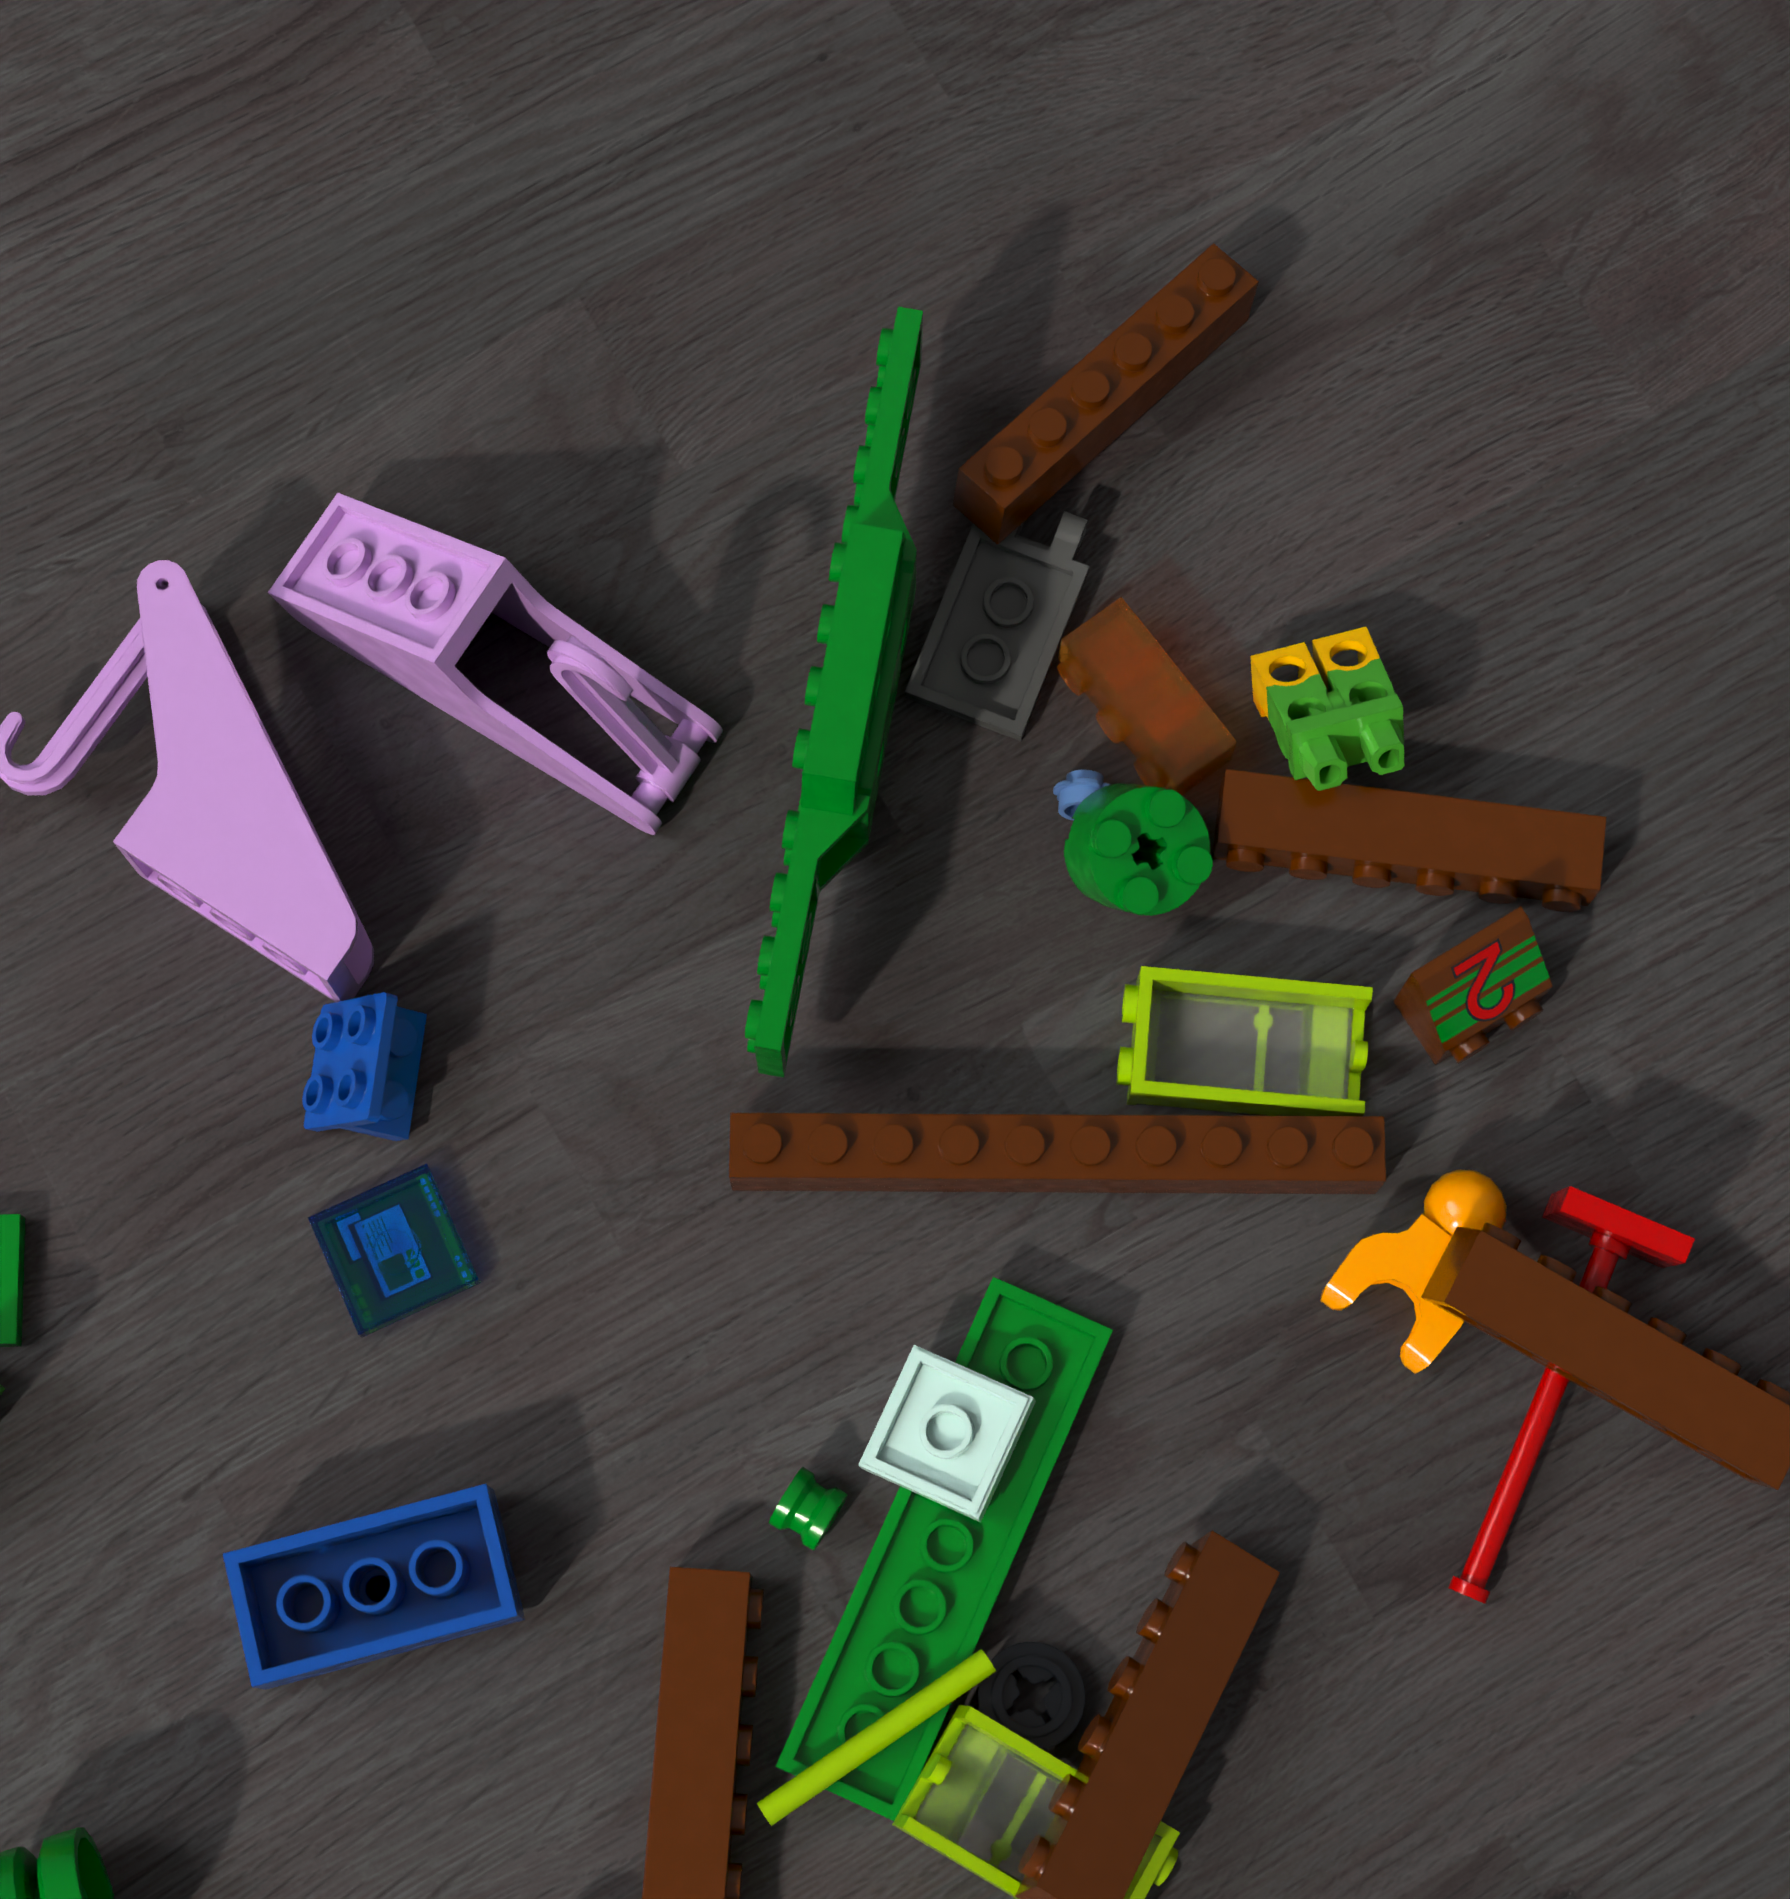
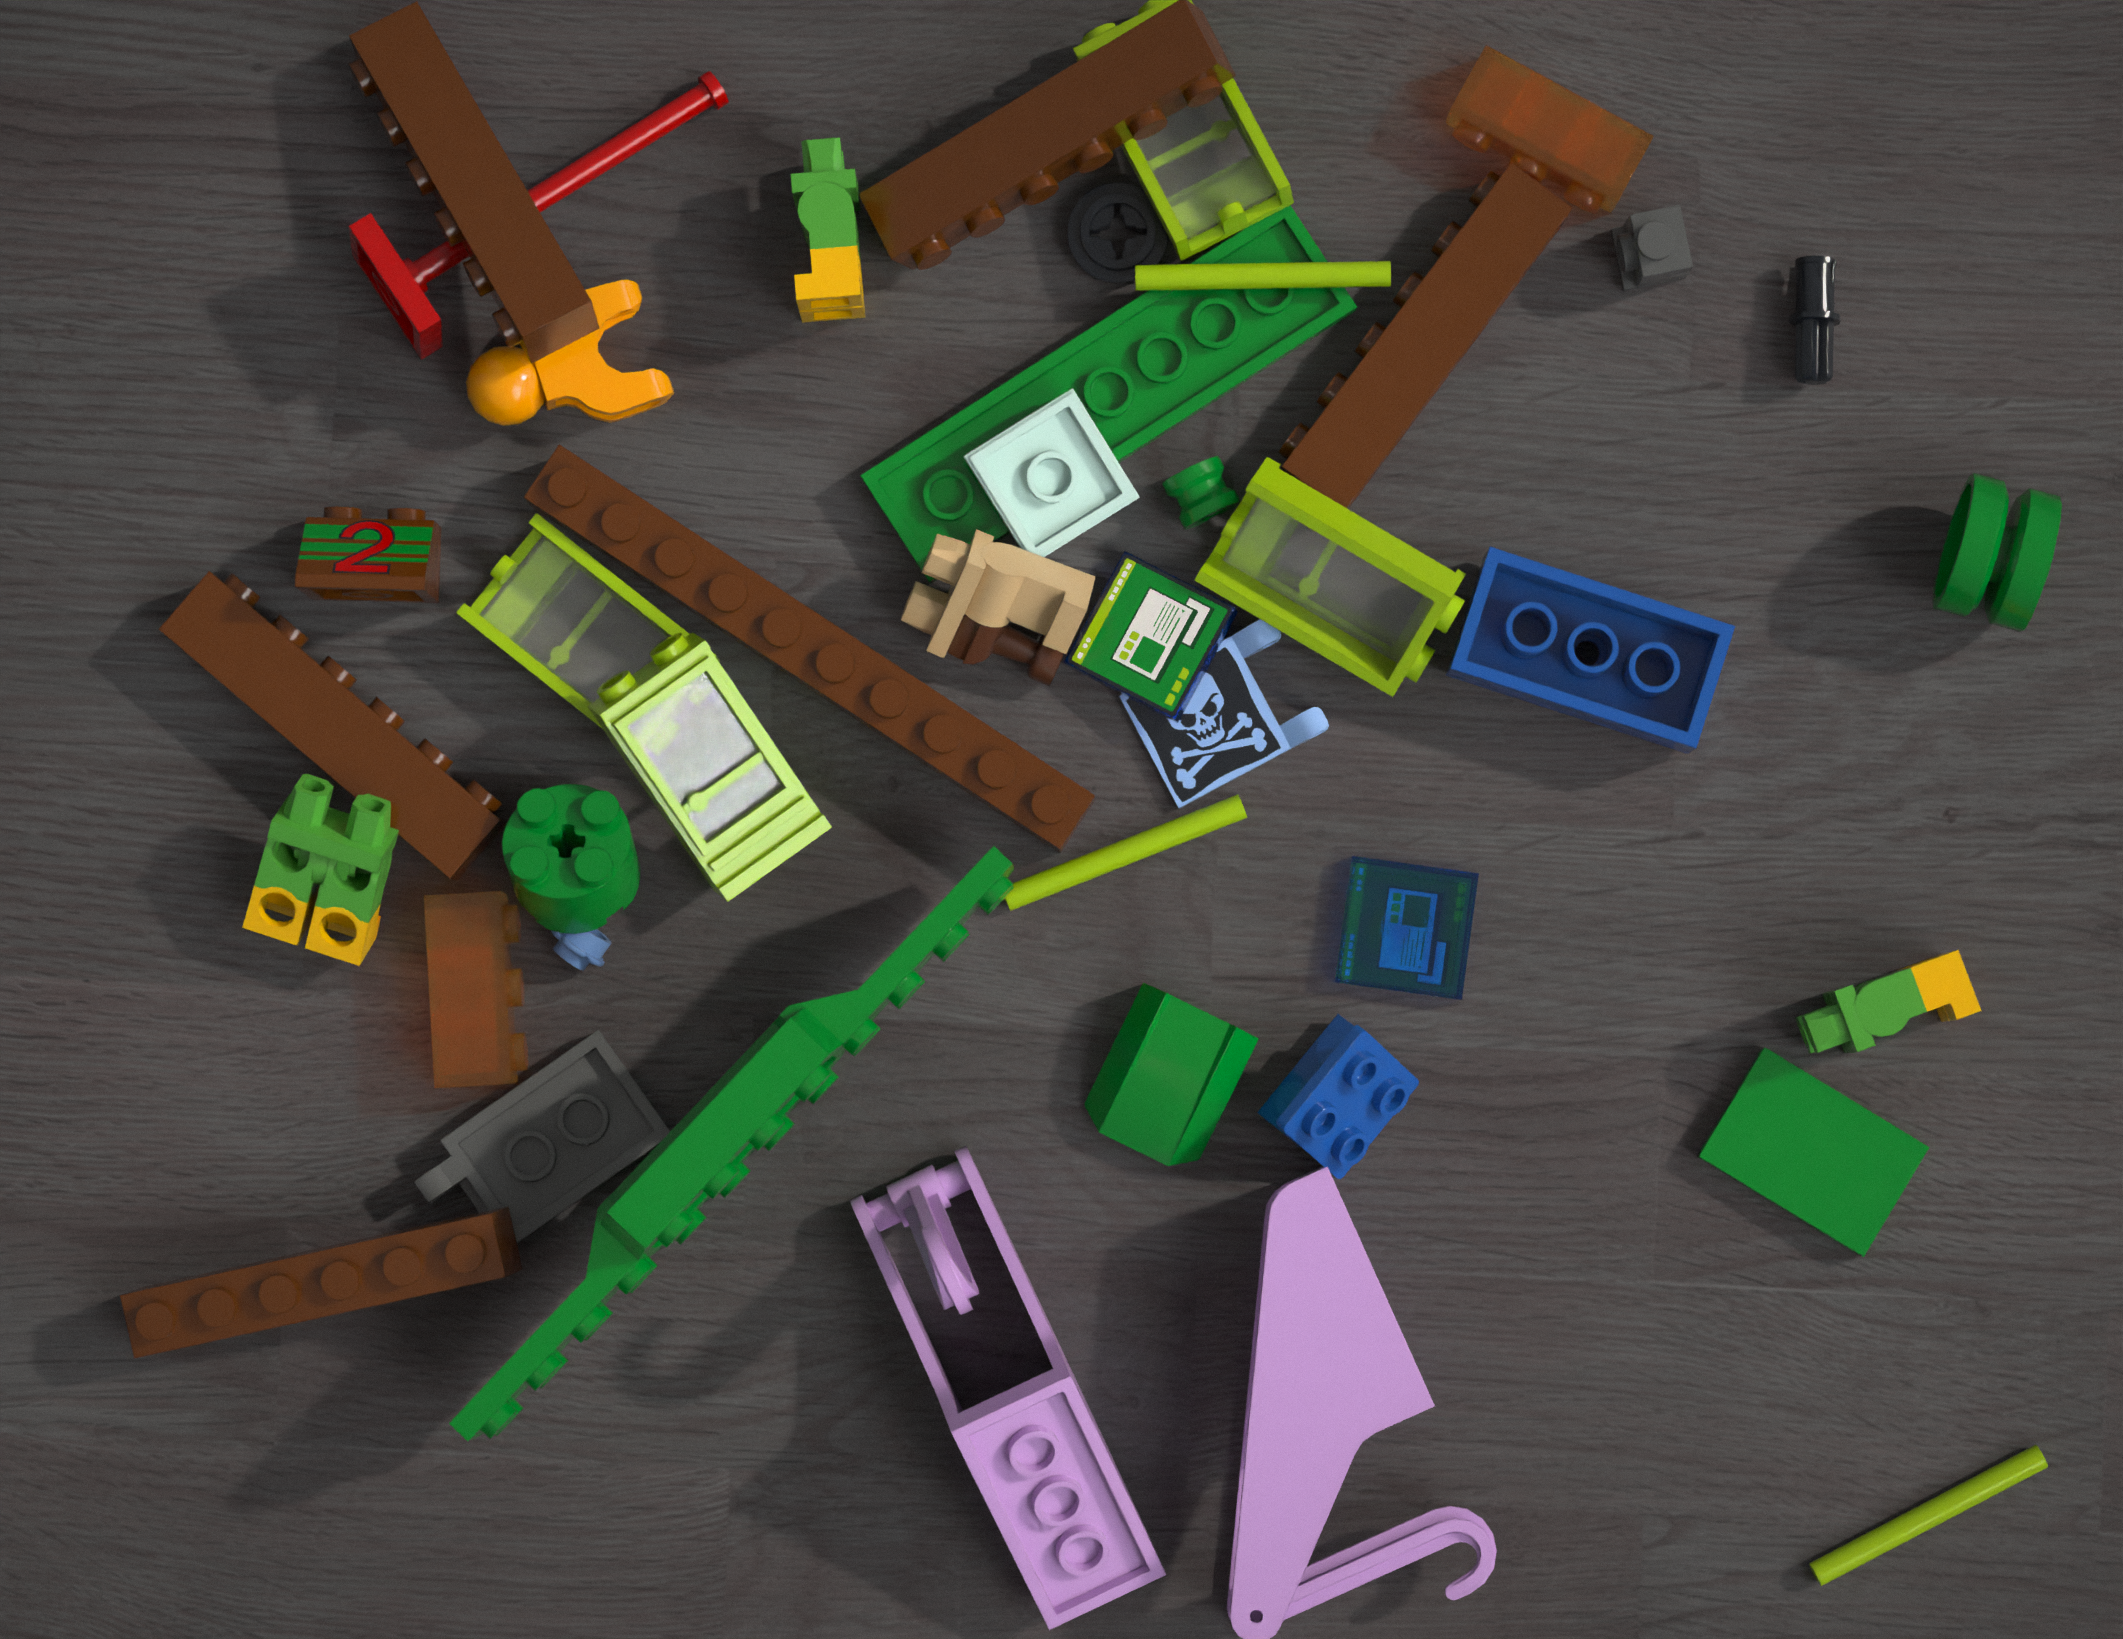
camera: 145 degrees left, 10 degrees up
(520, 996) = (1168, 1077): none -> green slope
(641, 1500) = (1332, 580): none -> door
(674, 1320) = (1224, 725): none -> flag
(676, 1161) = (1126, 851): none -> lime bar
(771, 1355) = (1151, 636): none -> tile
(920, 1293) = (990, 589): none -> tan hips
(1075, 994) = (708, 764): none -> lime door
(1281, 1523) = (826, 207): none -> hips

